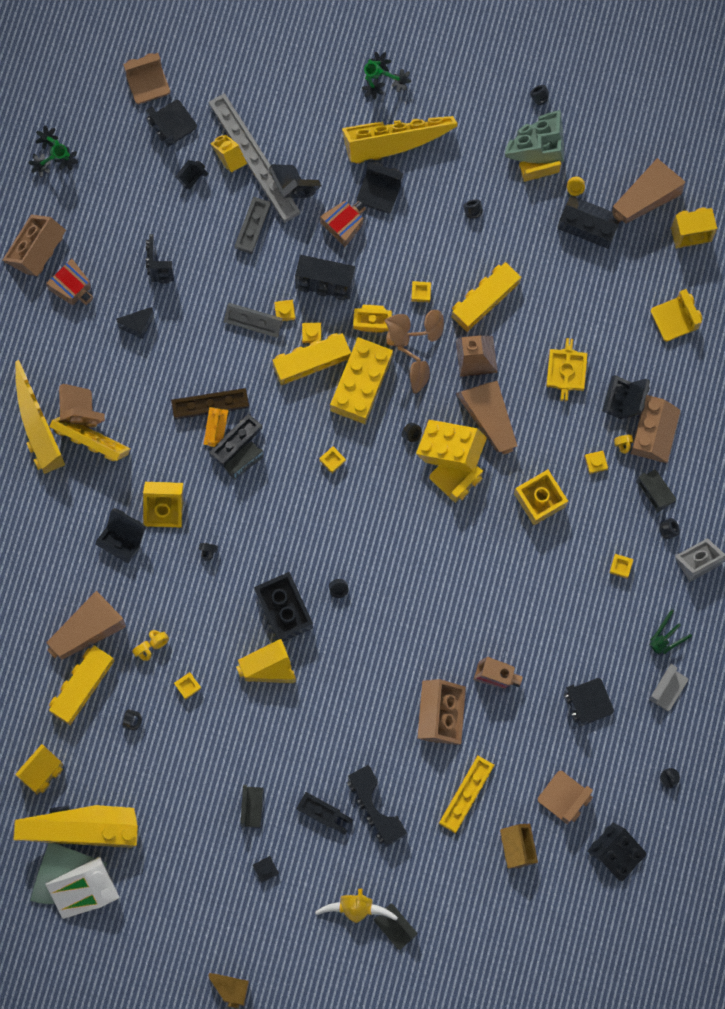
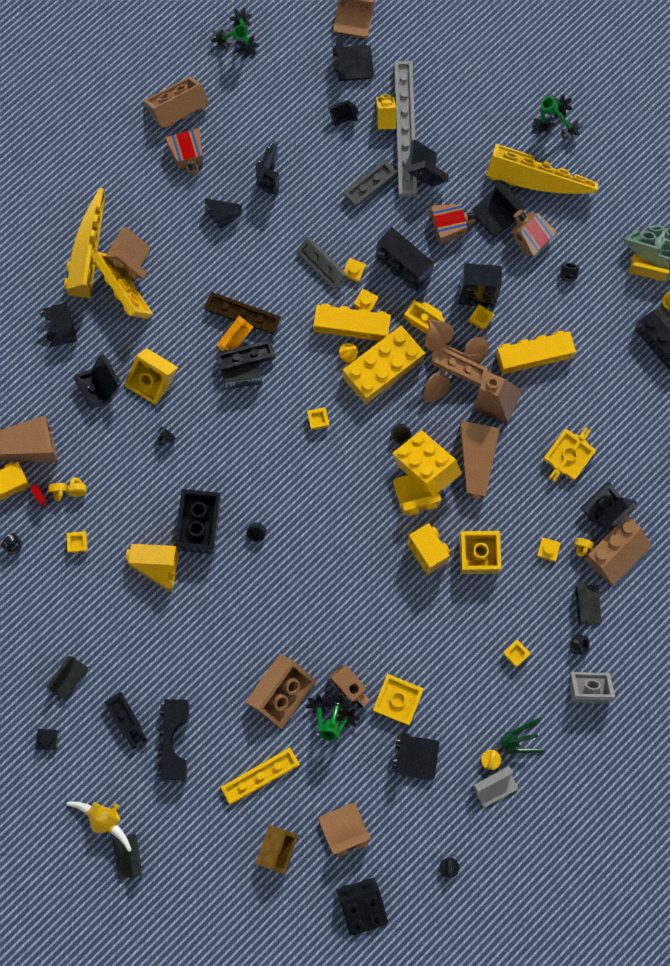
camera: 30 degrees right, 0 degrees up
(57, 505) = (62, 328): none -> black piece
(129, 664) = (39, 496): none -> red tile
(323, 387) = (348, 352): none -> yellow tile
(405, 264) = (480, 285): none -> black piece
(421, 192) = (531, 232): none -> medium nougat torso
(429, 345) = (459, 366): none -> medium nougat plate
(496, 518) = (428, 548): none -> yellow brick
(505, 718) = (330, 730): none -> plant
(545, 662) = (398, 699): none -> yellow plate
(651, 668) = (491, 760): none -> yellow tile

